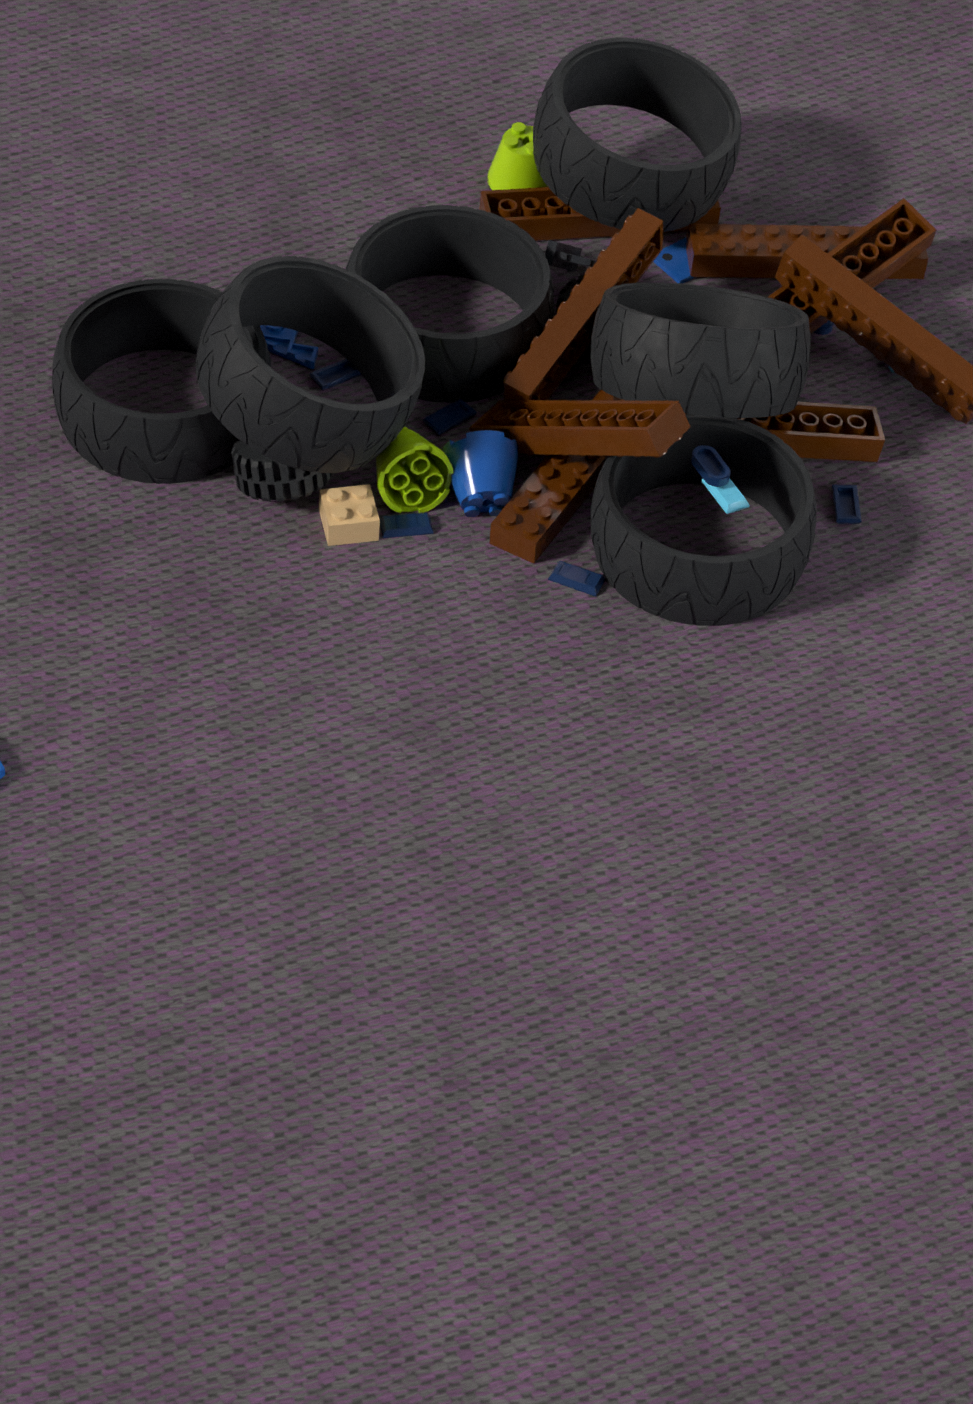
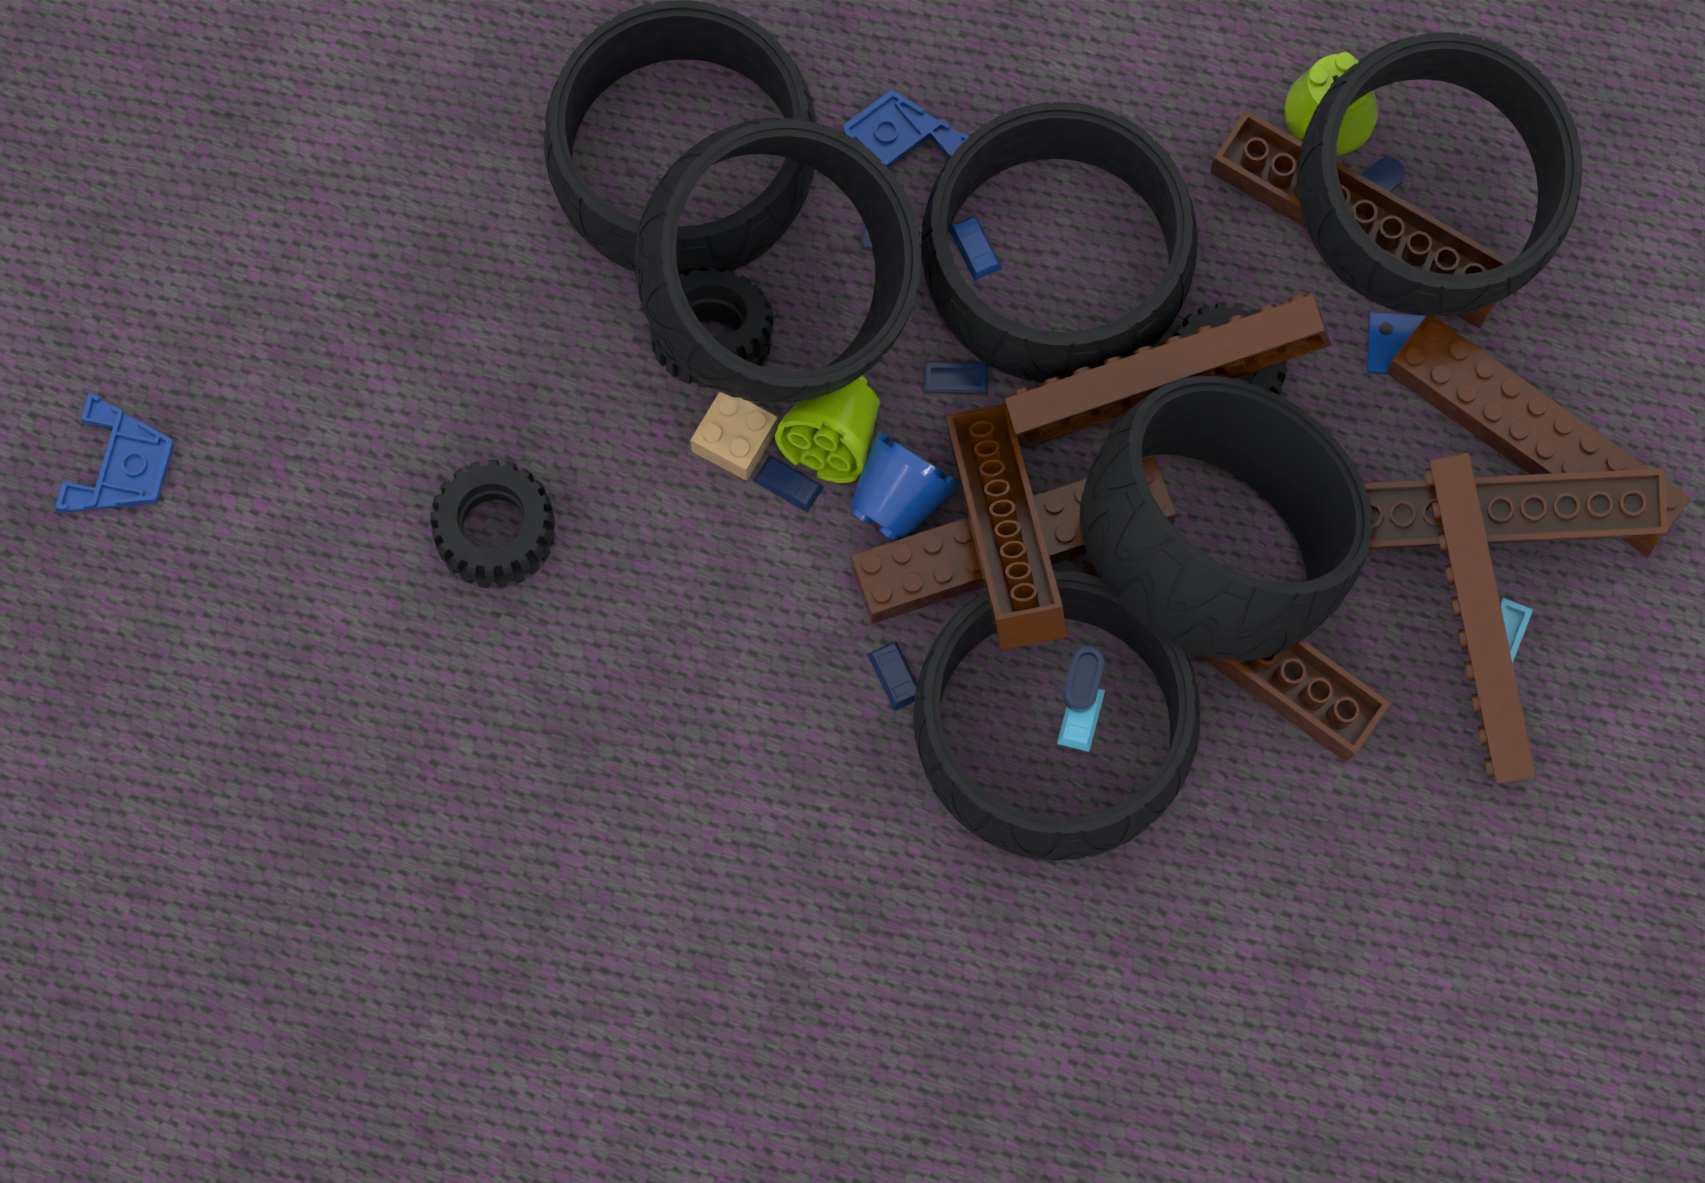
camera: 45 degrees right, 25 degrees up
(247, 668) = (483, 485): none -> black tyre
(566, 256) = (1248, 278): black fence -> none
(846, 504) = (1258, 790): dark blue tile -> none

